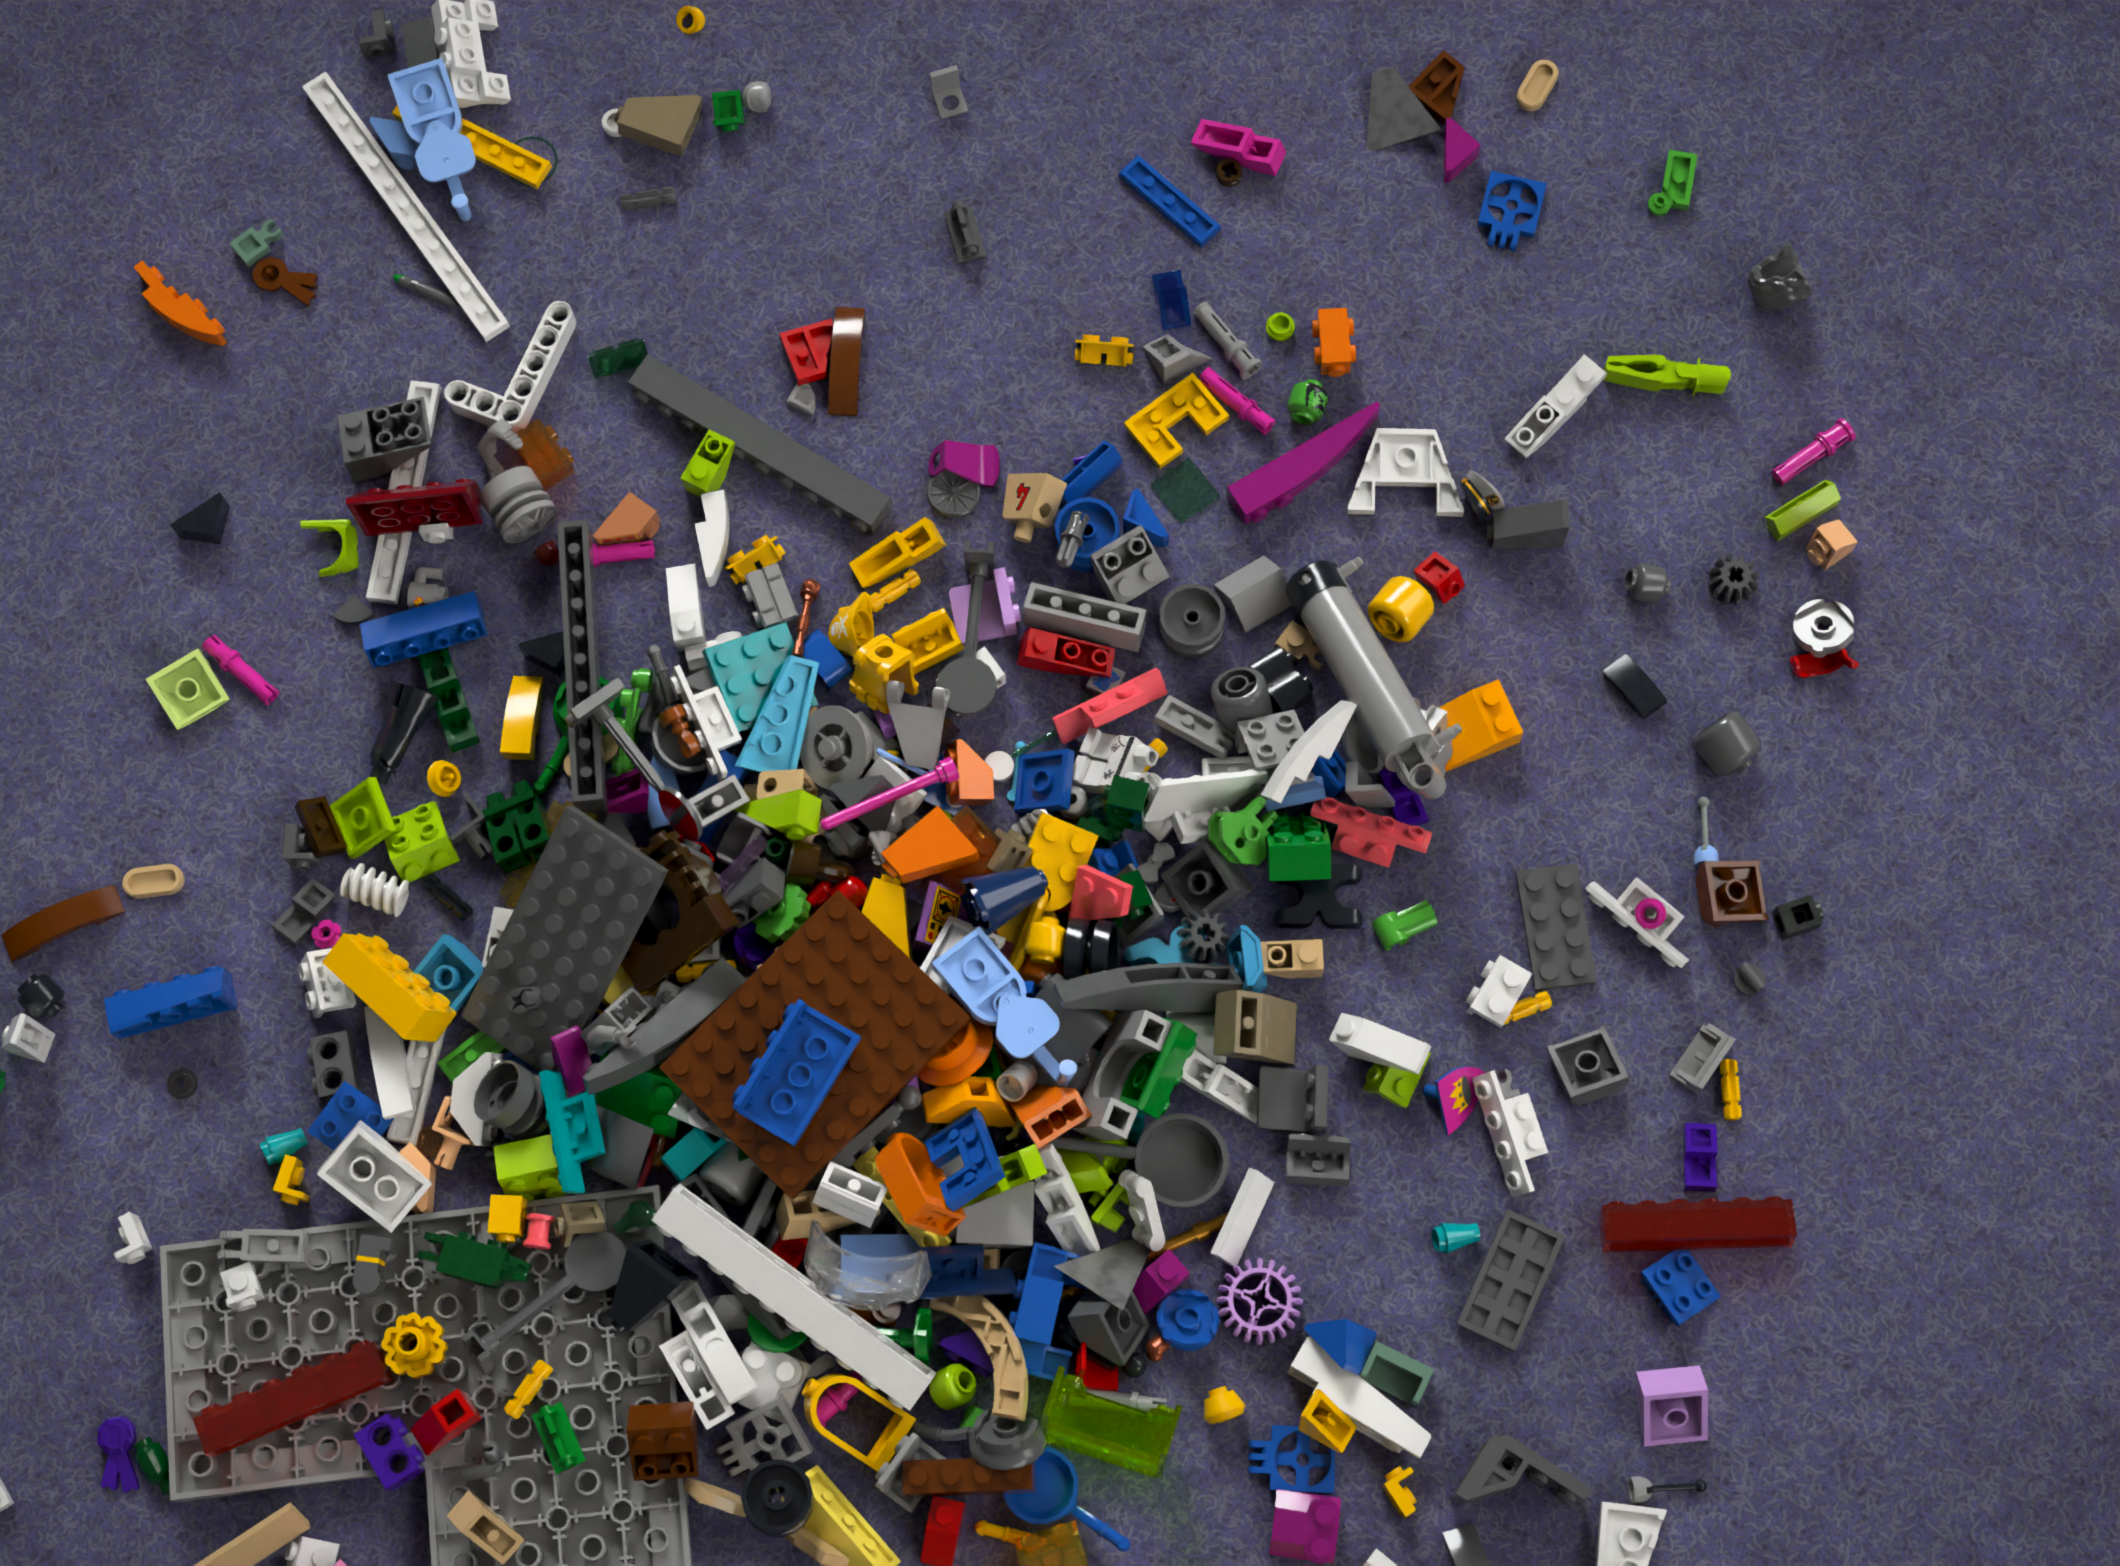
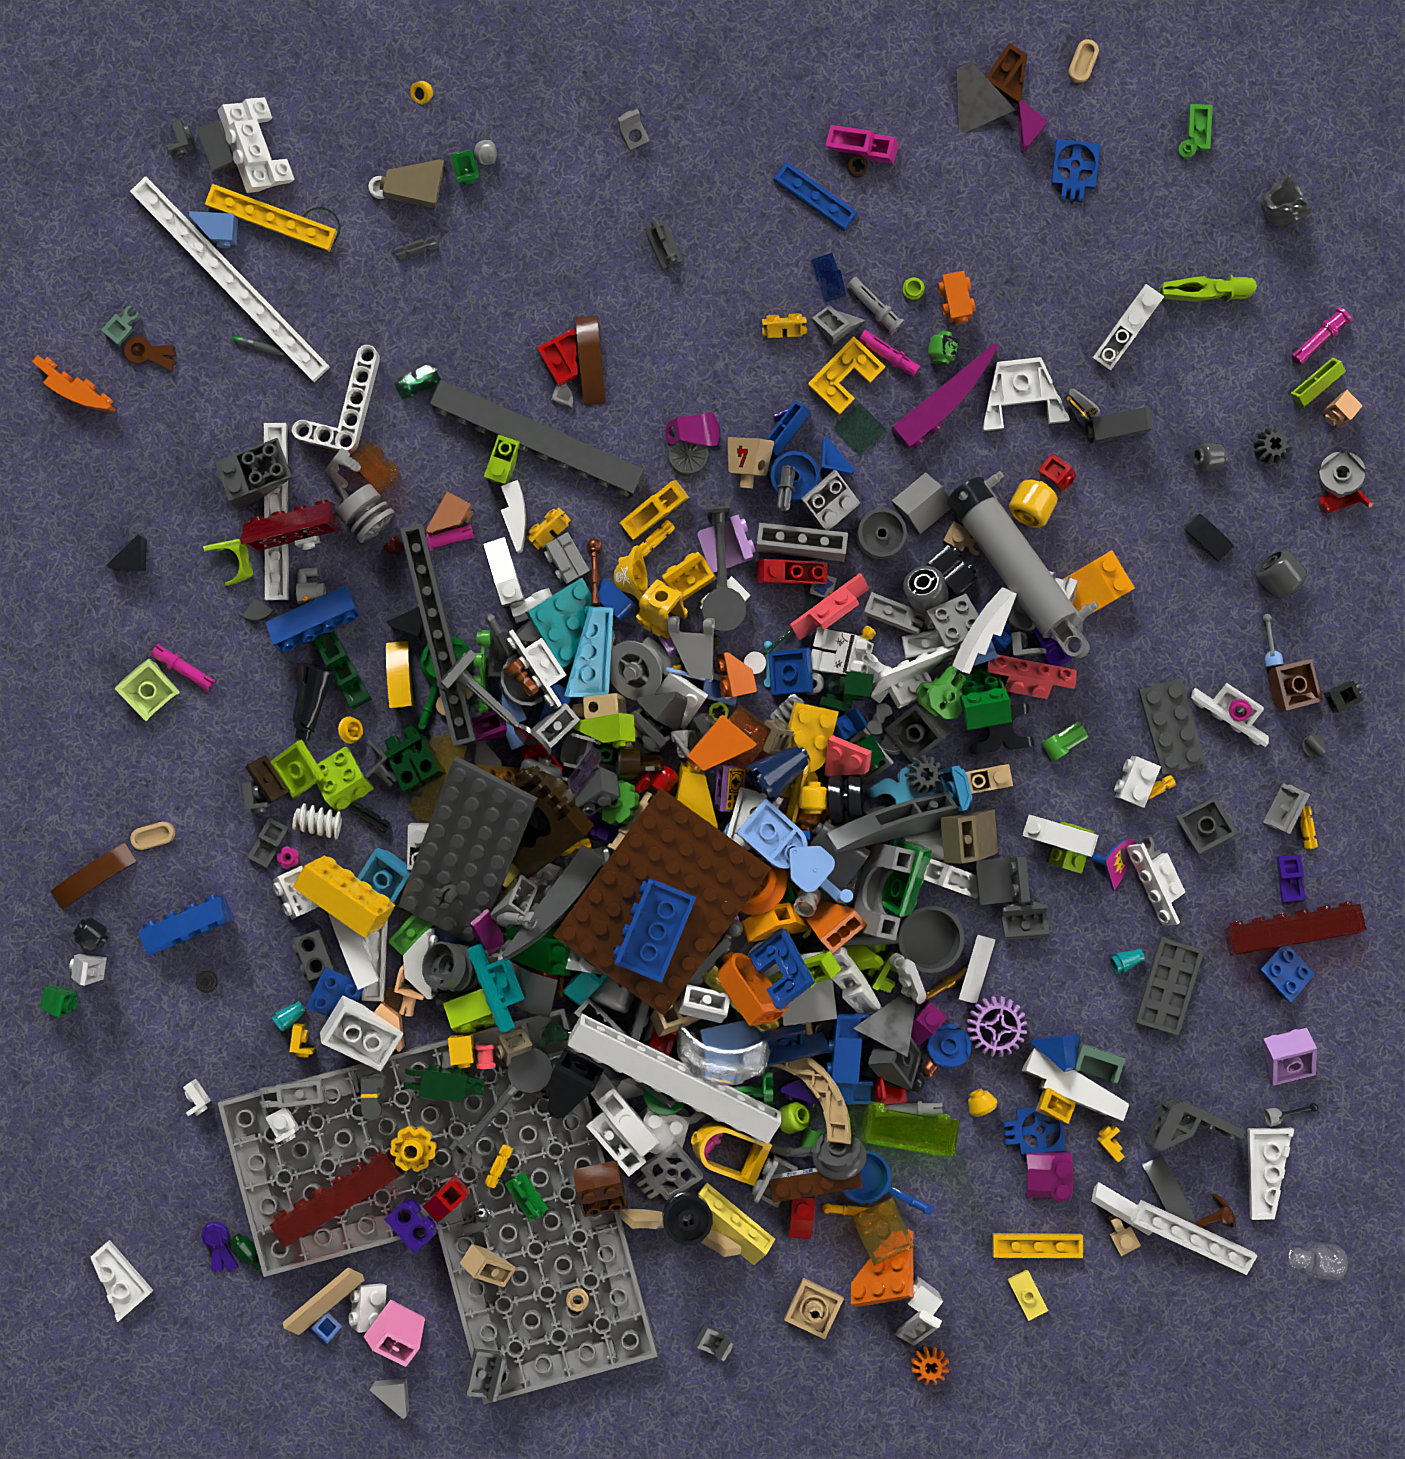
camera: 15 degrees left, 15 degrees up
(435, 125) = (241, 212): light blue plate -> none
(943, 772) = (719, 681): dark pink piece -> none

